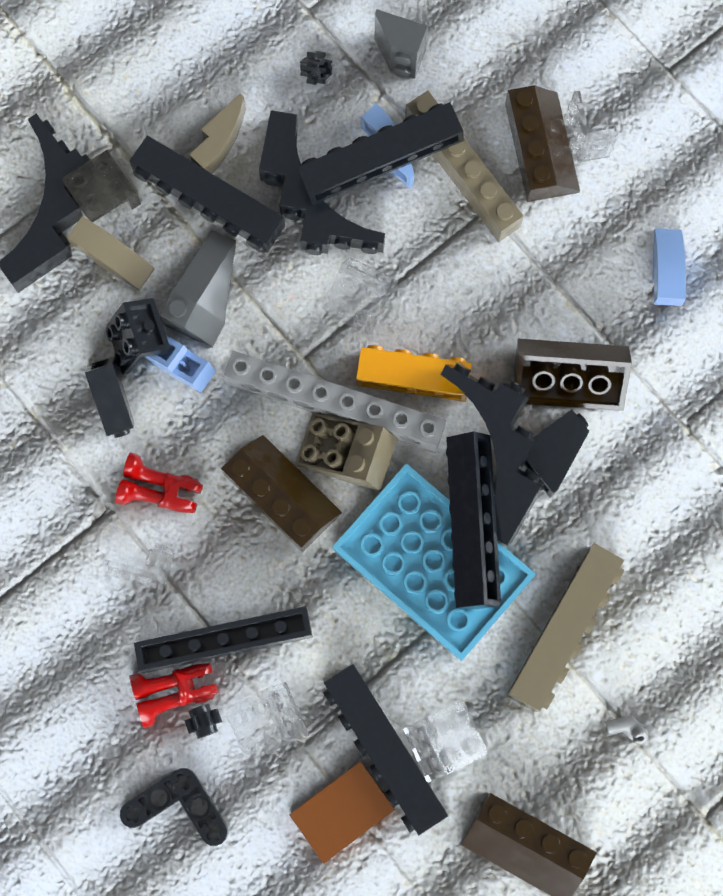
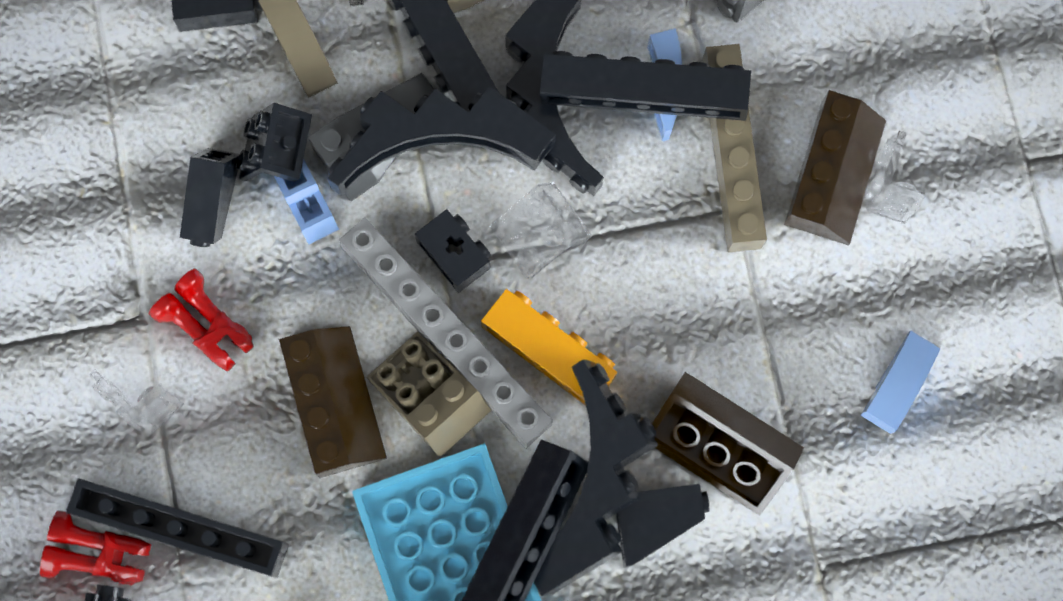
camera: 25 degrees right, 0 degrees up
(283, 237) = (392, 130): none -> black arch
(315, 352) = (457, 269): none -> black brick

